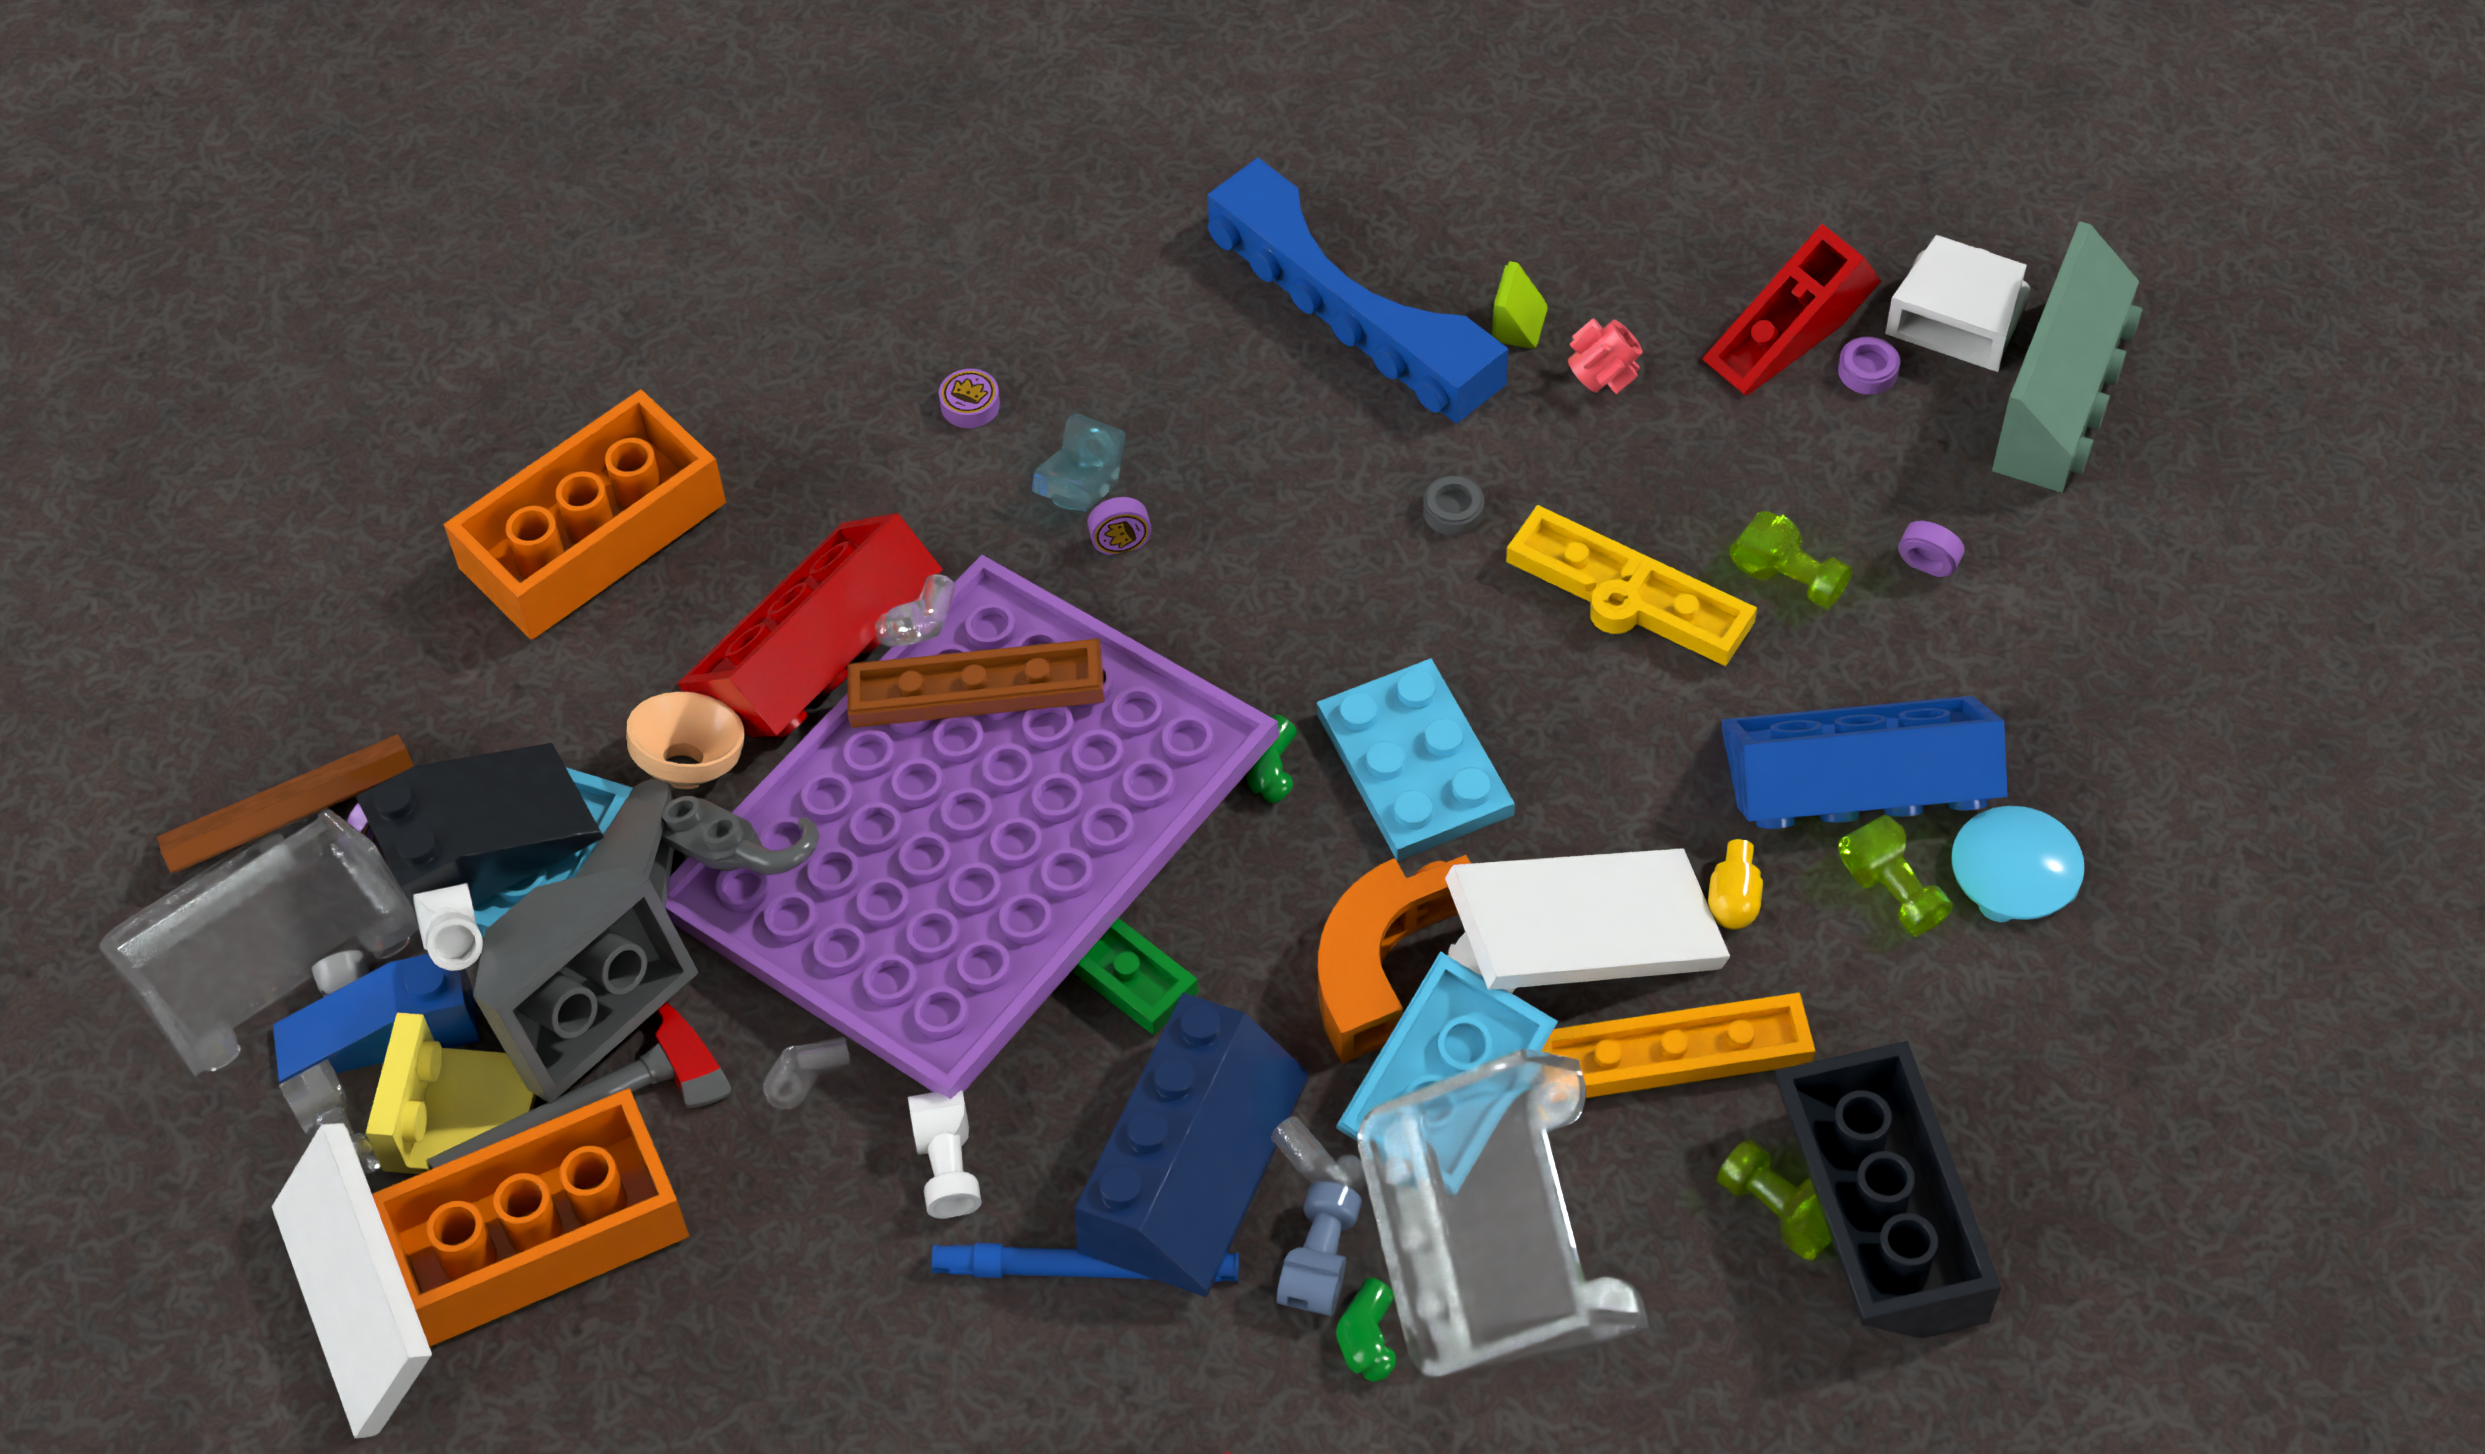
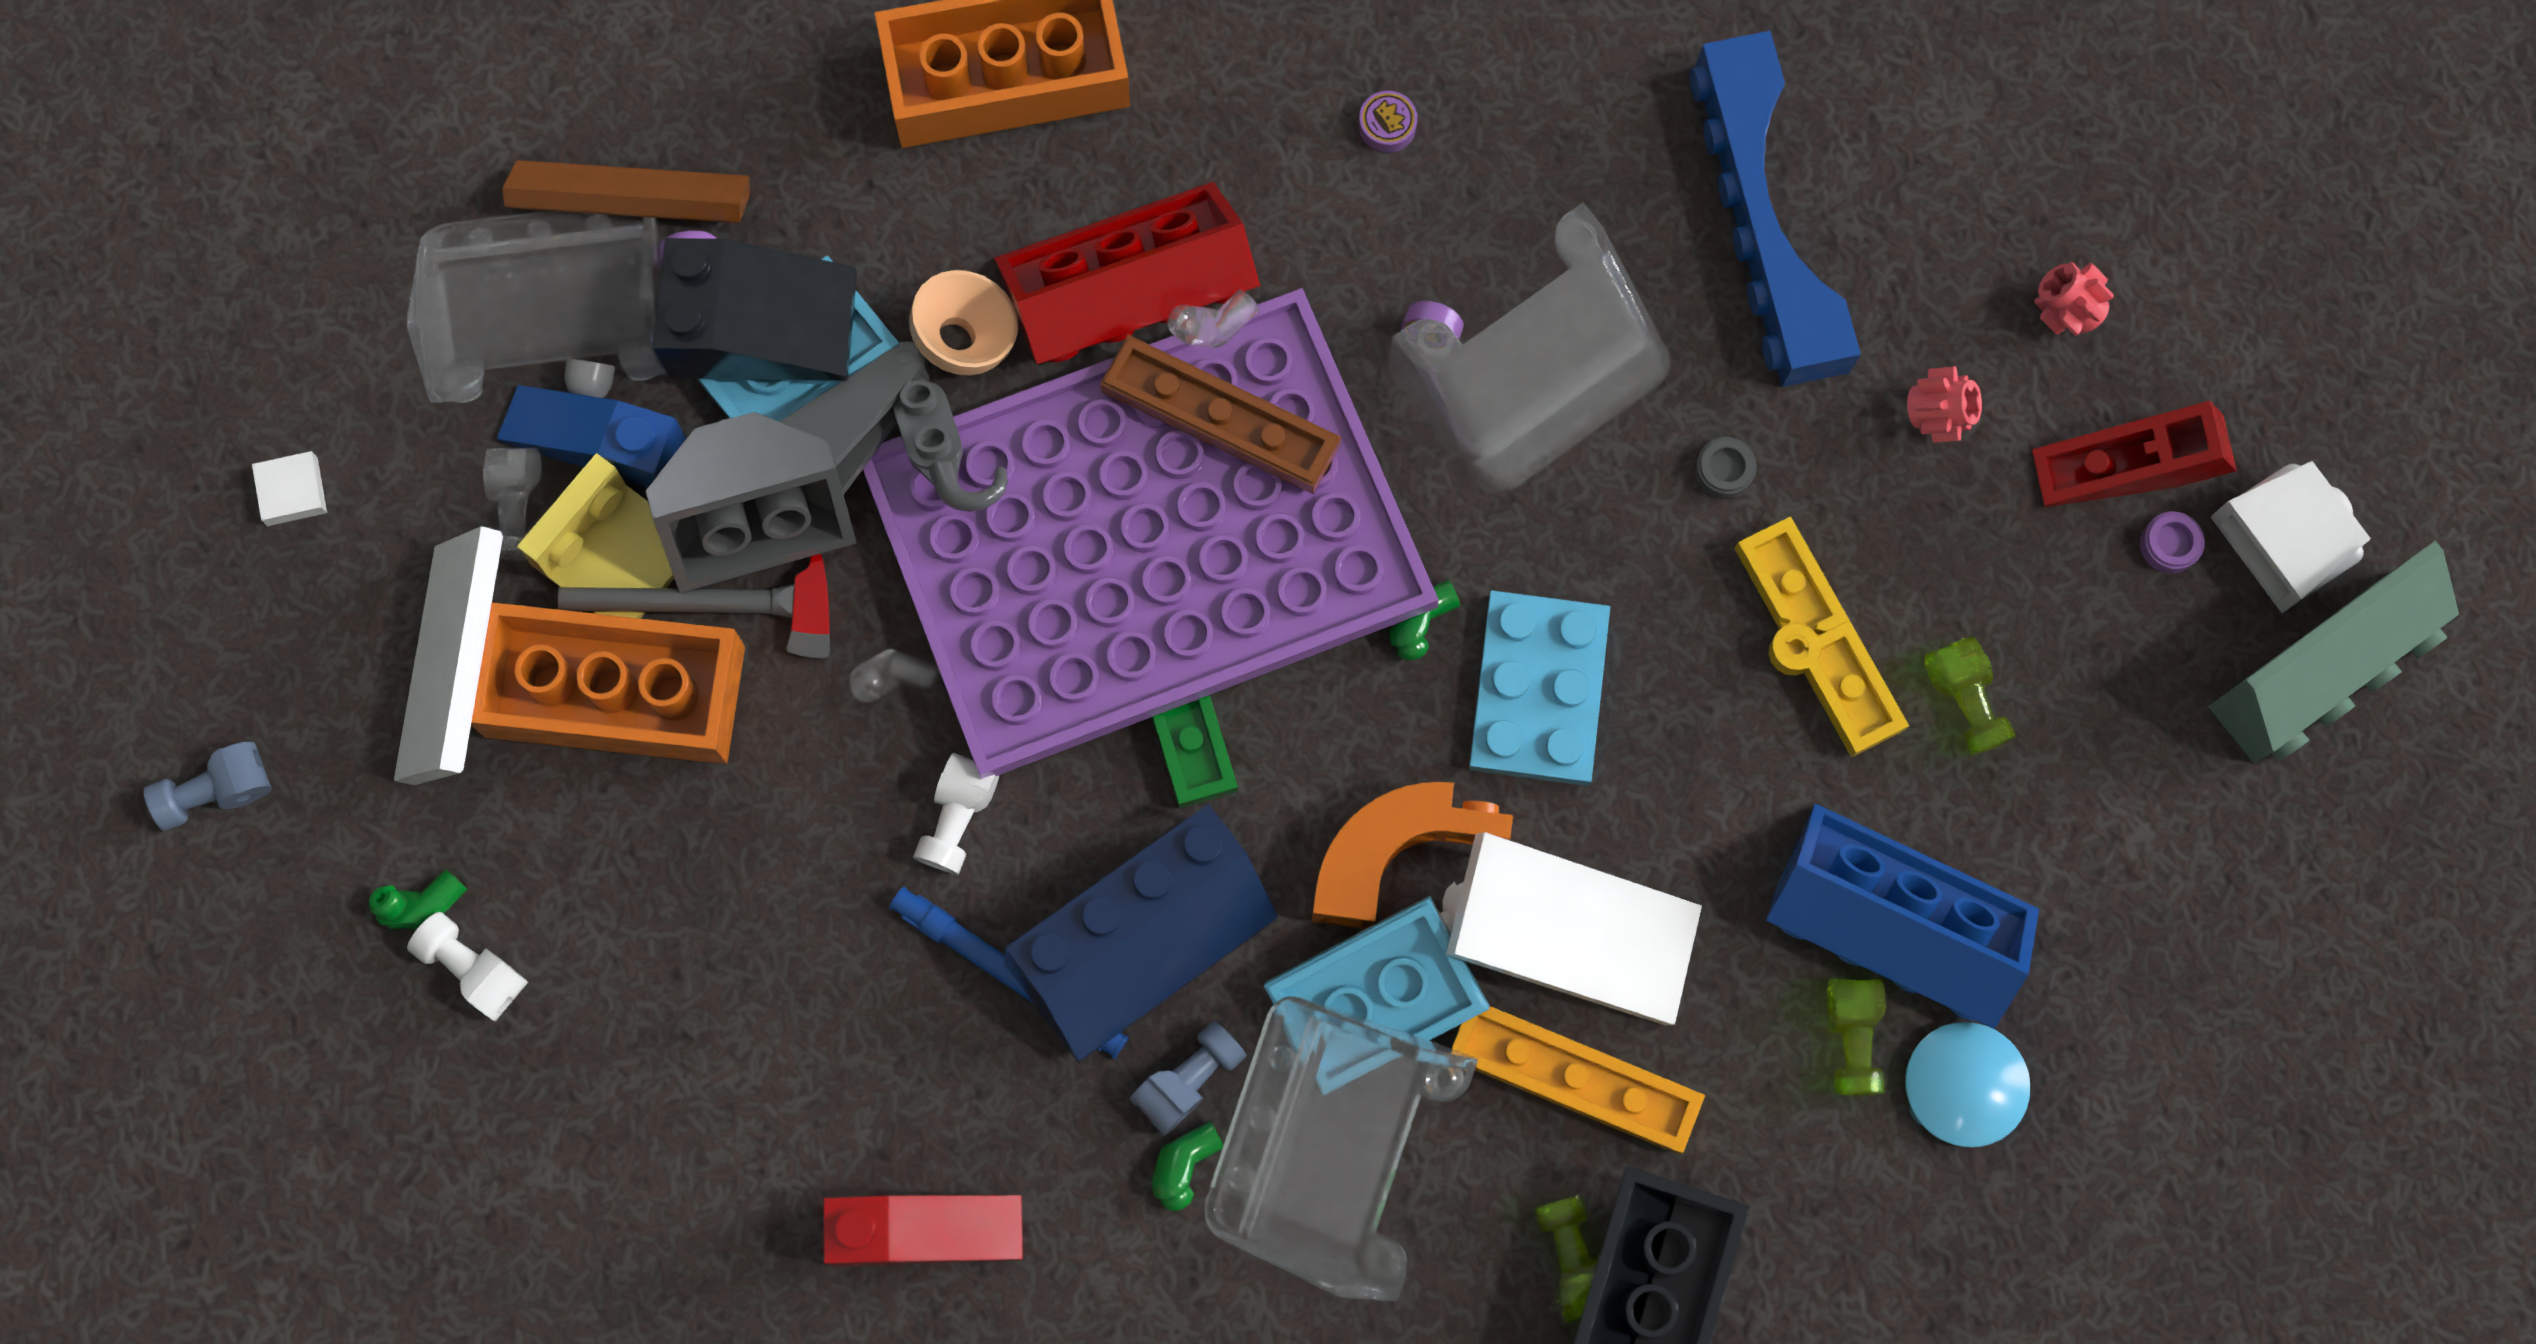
camera: 25 degrees right, 20 degrees up
(88, 1236) = (289, 488): none -> white tile
(448, 927) = (676, 395): white leg -> none
(1083, 466) = (1435, 250): clear light blue bracket -> none
(1237, 512) = (1540, 371): none -> clear windscreen
(1313, 1160) = (1228, 1001): clear arm -> none
(1518, 309) = (1903, 310): lime slope -> none
(1653, 226) = (2073, 298): none -> coral gear
(1736, 887) = (1720, 966): yellow cylinder -> none
(1931, 548) = (2096, 756): medium lavender tile -> none

